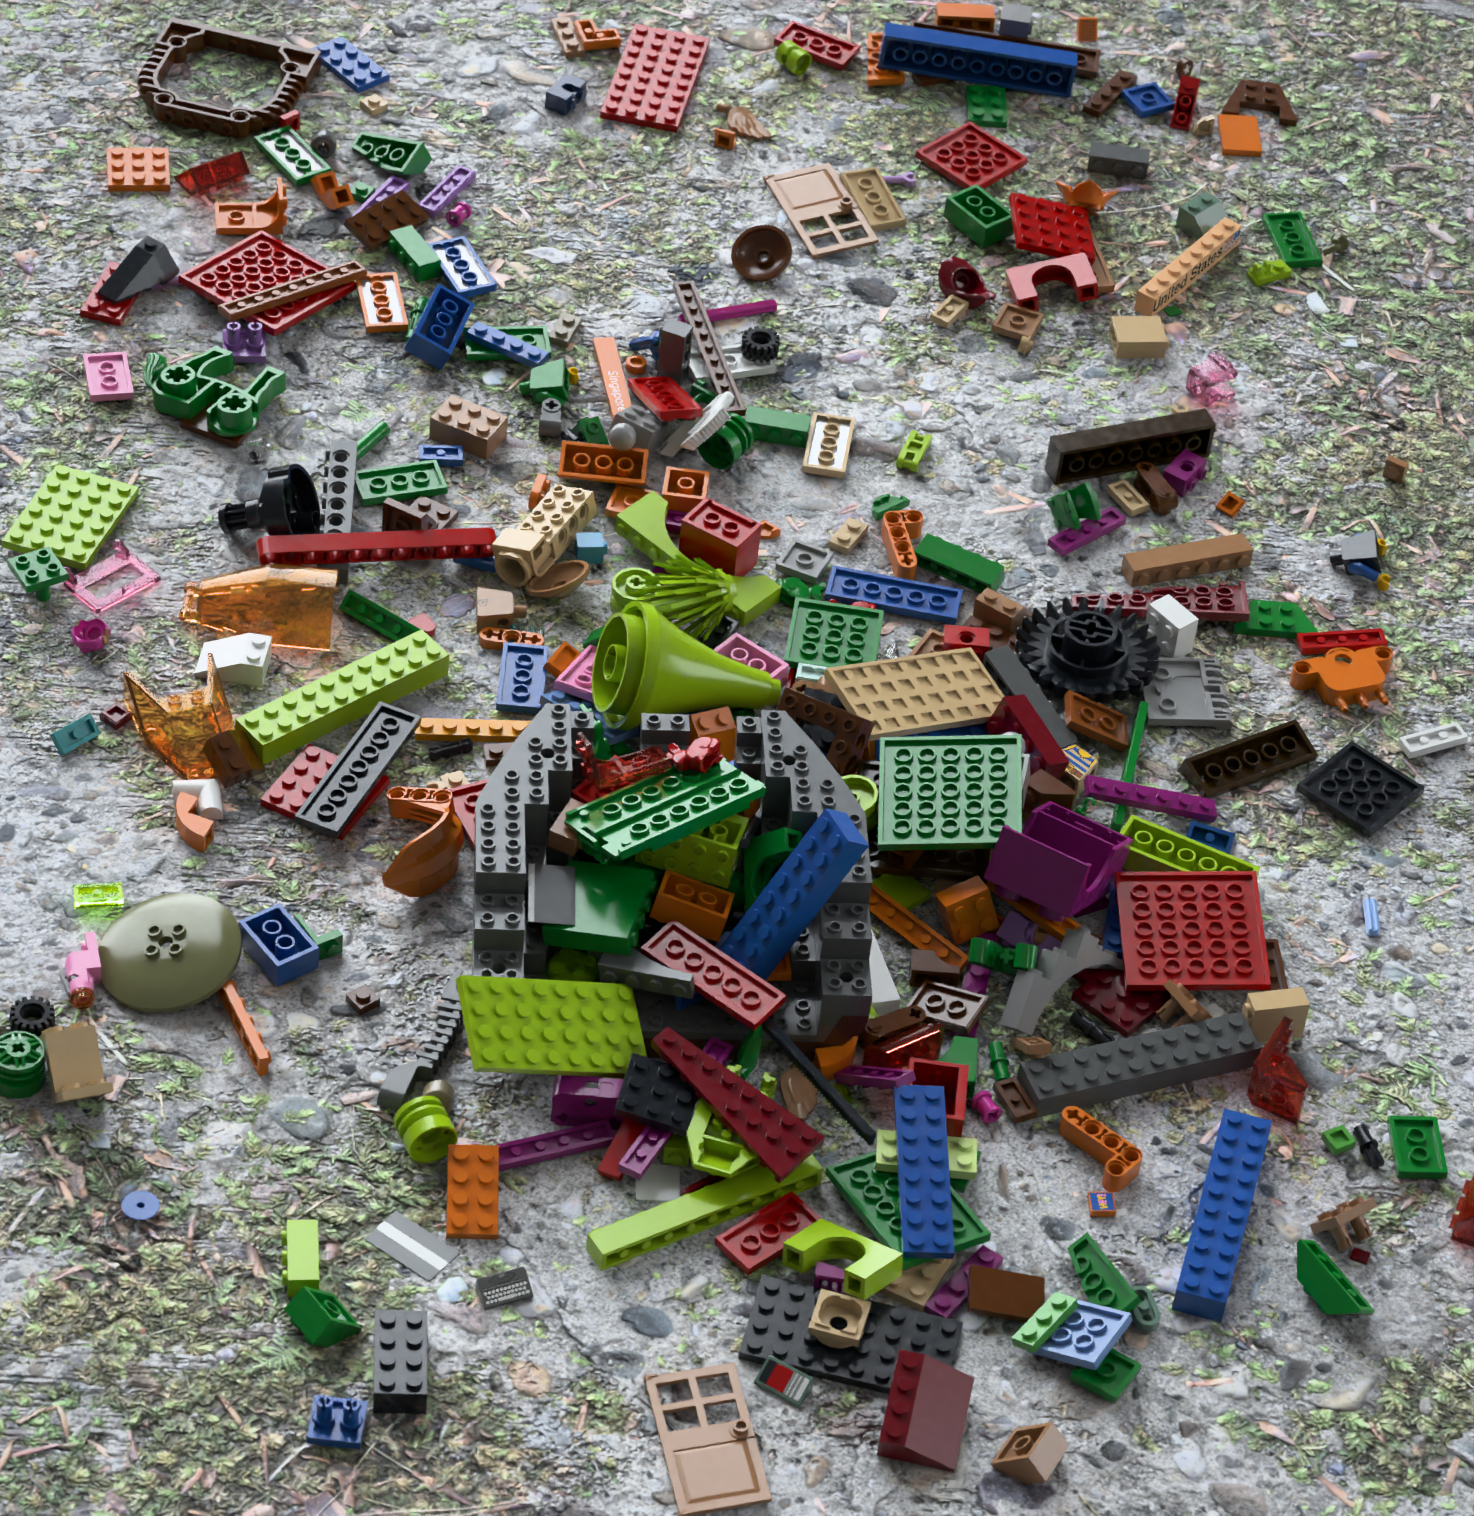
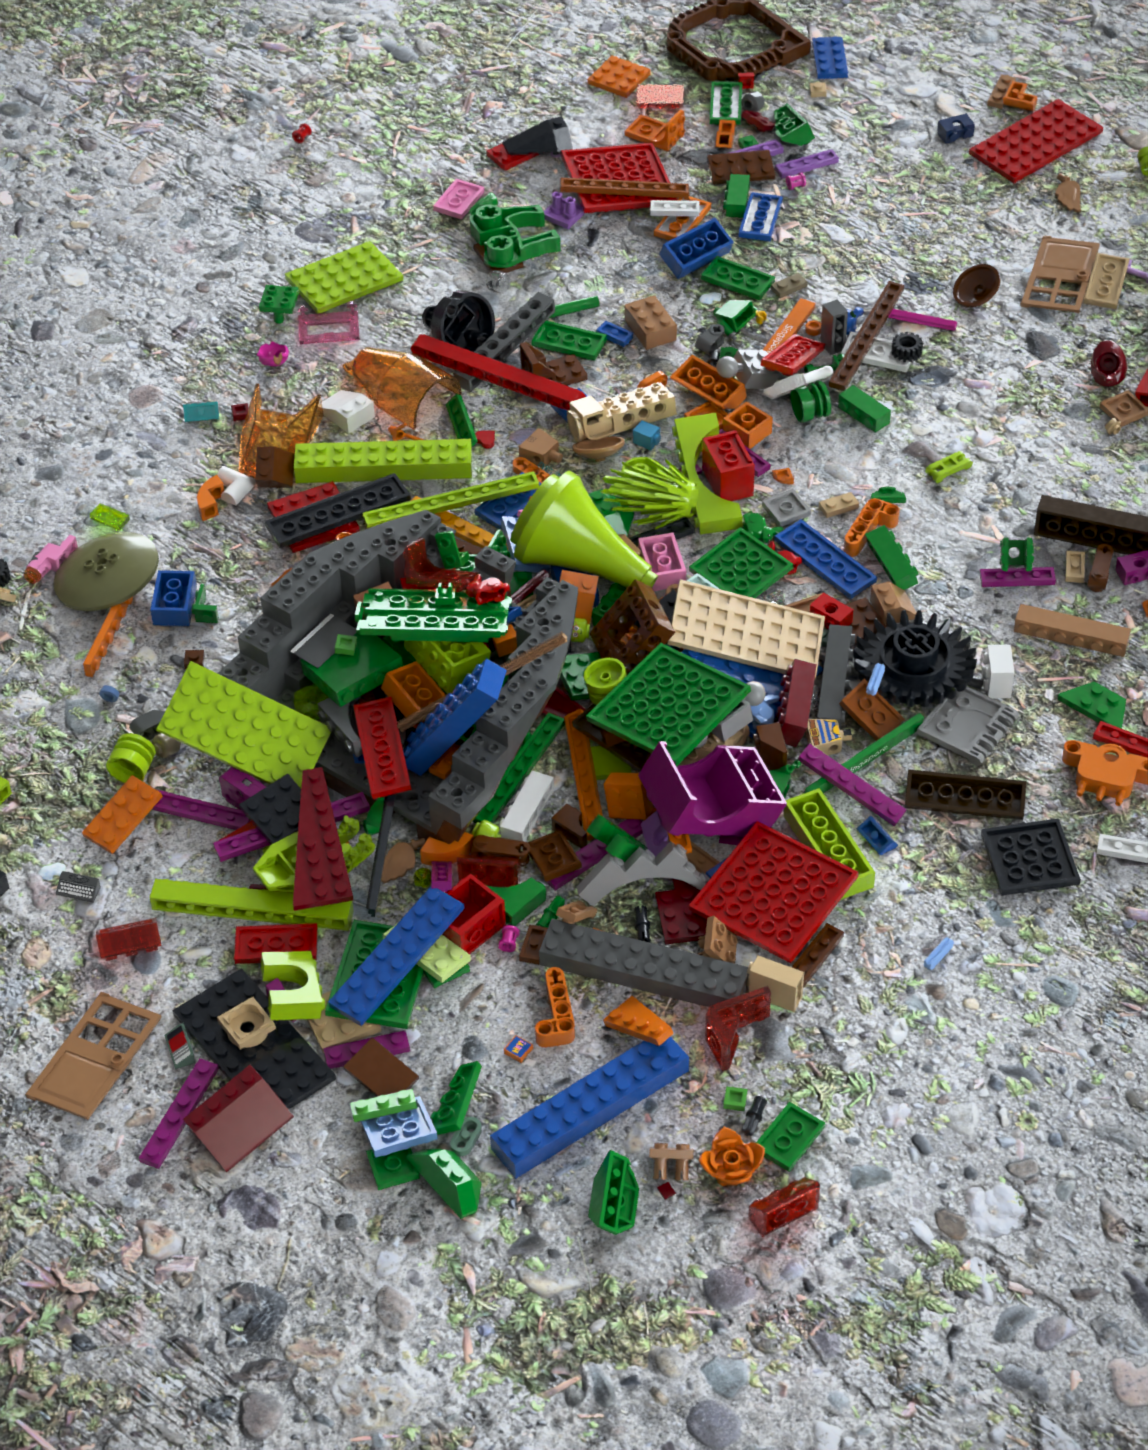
camera: 45 degrees right, 5 degrees up
(315, 1078) = (109, 693): none -> medium blue tile
(323, 660) = (398, 434): none -> orange plant
(341, 162) = (755, 118): none -> dark red plate
(369, 292) = (674, 208): none -> white plate
(412, 1245) = (58, 830): sticker -> none
(467, 704) = (455, 498): none -> lime plate
(507, 345) = (731, 278): blue plate -> none
(584, 885) = (345, 644): none -> bright green plate
(602, 736) = (449, 551): none -> green bracket
(618, 1307) = (128, 939): none -> clear red slope
(659, 1183) = (242, 872): white sticker -> none
(661, 780) = (445, 596): none -> green tile
(724, 138) = (1040, 199): orange slope -> none
(750, 832) = (472, 663): black bar -> none
(784, 851) = (510, 667): none -> medium nougat axle
(828, 445) = (889, 436): tan piece -> none
(851, 1444) = (183, 1104): none -> magenta plate
(949, 311) = (1080, 380): tan plate -> none
(1031, 1453) = (281, 1190): medium nougat slope -> none
(1083, 684) = (875, 679): none -> light blue axle
(1171, 1351) = (449, 1178): none -> green wedge
(1191, 1115) = (638, 1021): none -> orange wing
(1205, 603) = (1032, 658): dark red wing -> none
(1398, 1193) = (729, 1147): none -> orange brick

